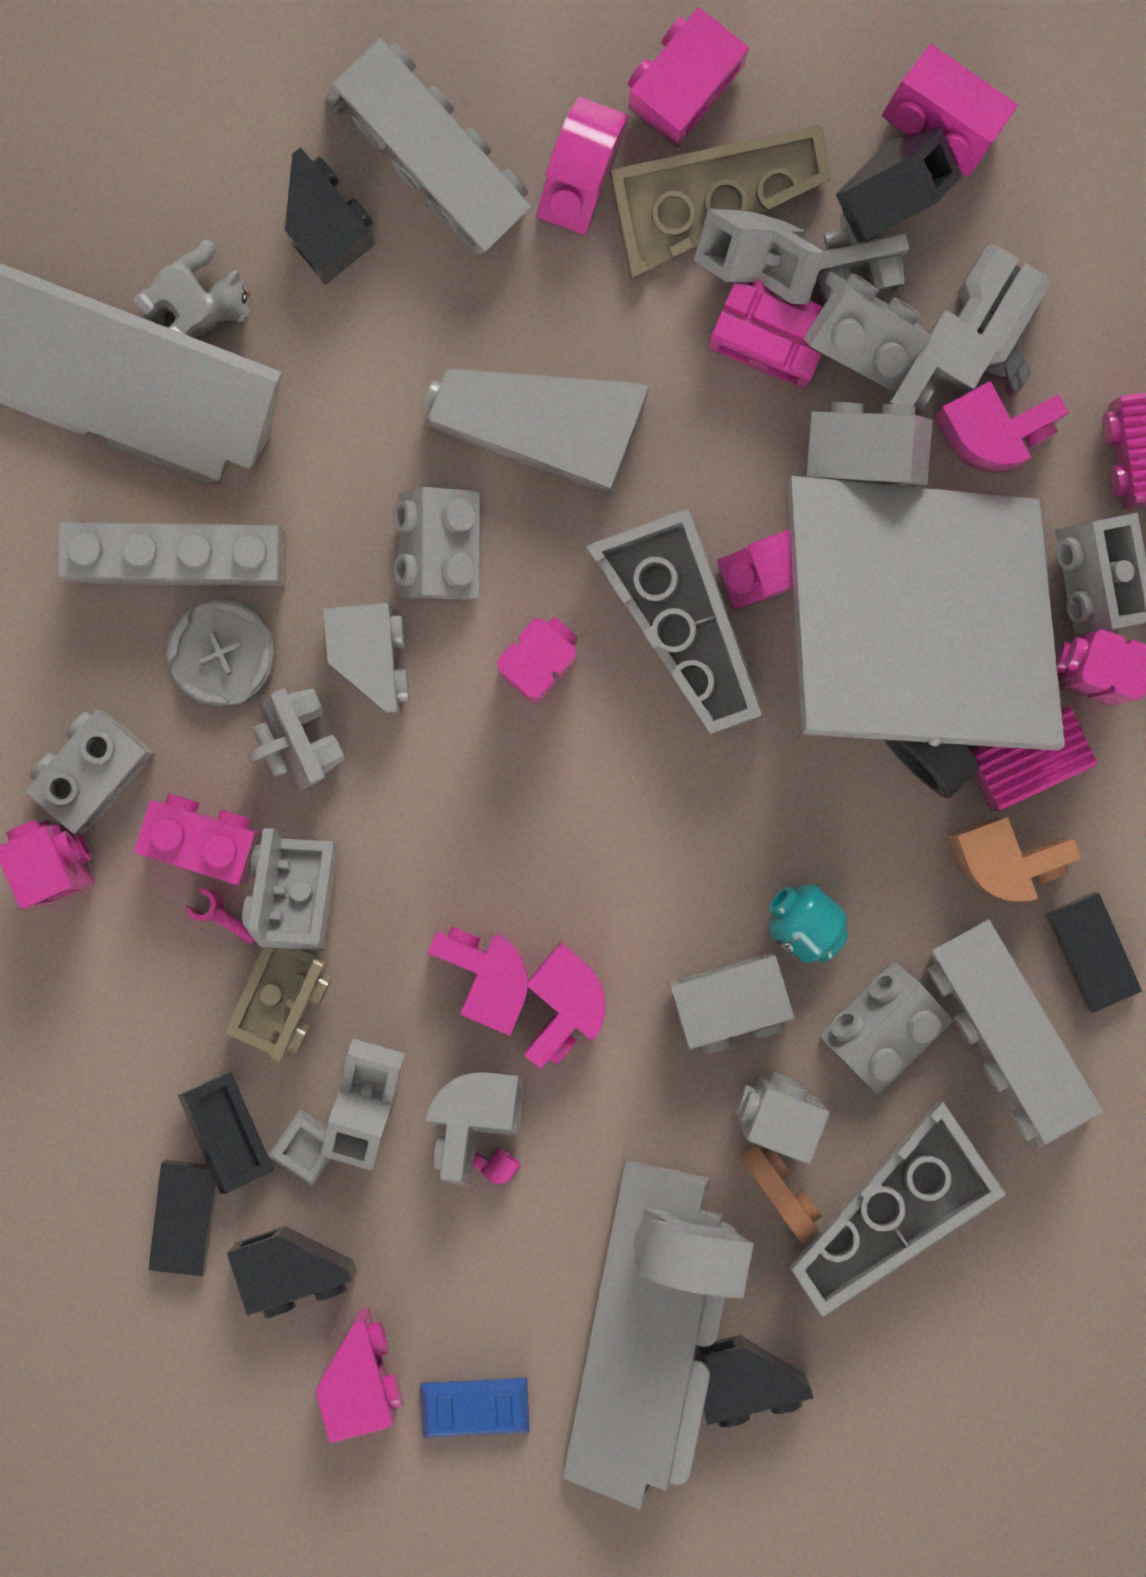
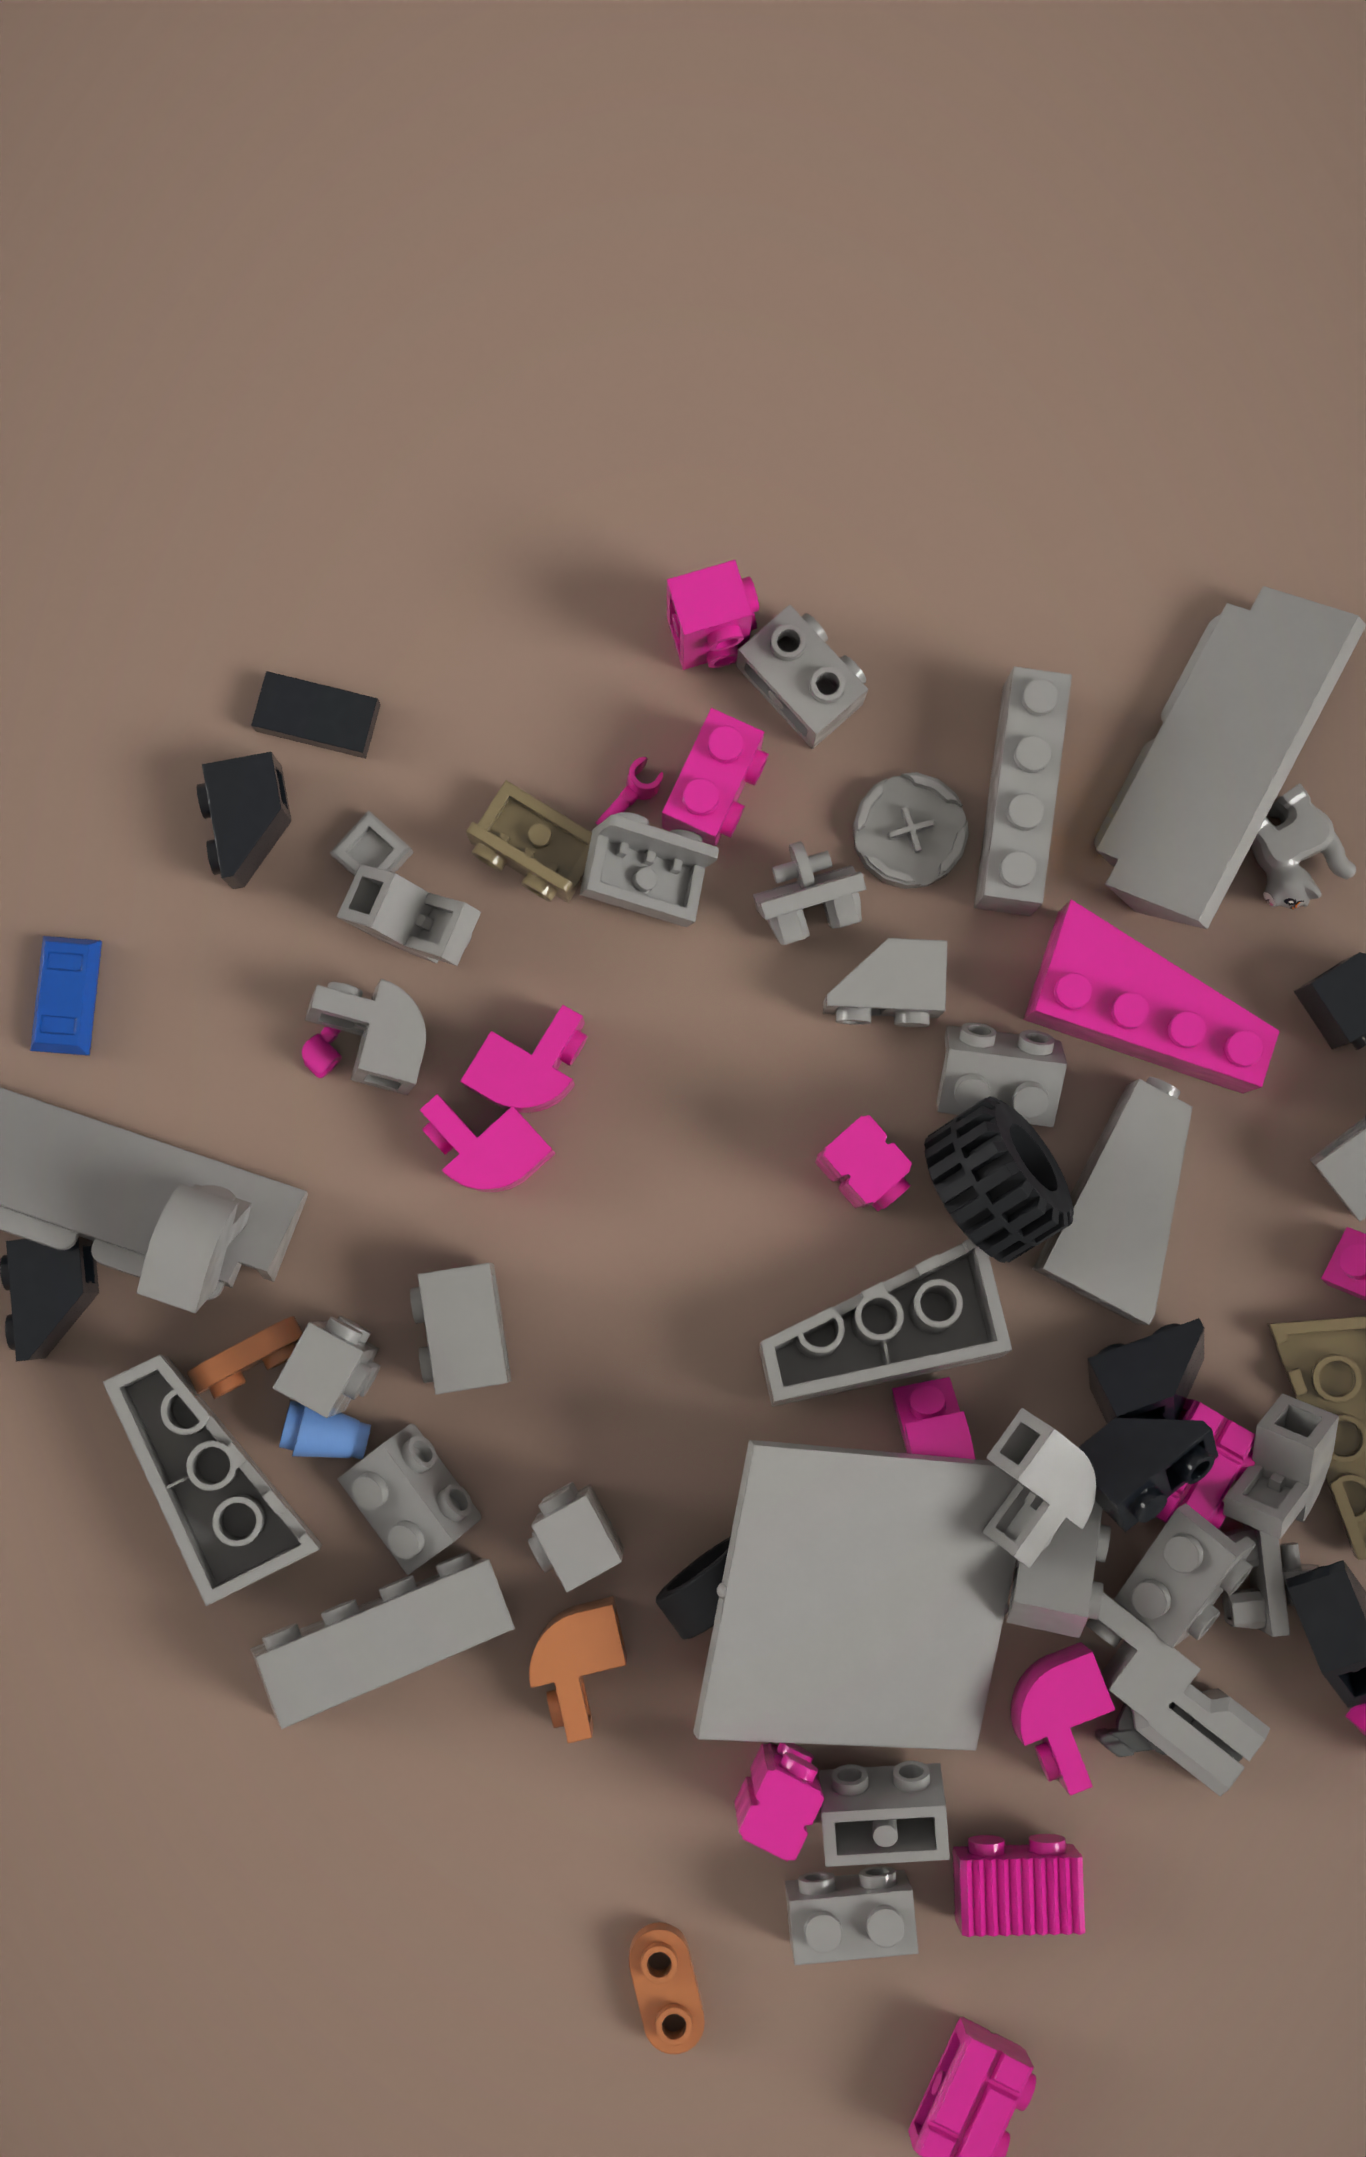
camera: 90 degrees right, 5 degrees down
(225, 1133) = (399, 769): black tile -> none
(355, 1388) = (107, 871): dark pink slope -> none
(356, 429) = (1142, 1005): none -> dark pink wedge
(537, 537) = (998, 1180): none -> black tyre
(698, 382) = (1148, 1375): none -> black slope
(774, 382) = (1145, 1463): none -> black slope
(805, 460) = (1052, 1485): none -> light grey brick
(807, 923) = (537, 1425): teal head -> none
(844, 1121) = (319, 1436): none -> medium blue cone
(902, 876) = (574, 1536): none -> light grey brick
(1017, 773) = (672, 1682): dark pink brick -> none
(1093, 952) = (461, 1745): black tile -> none

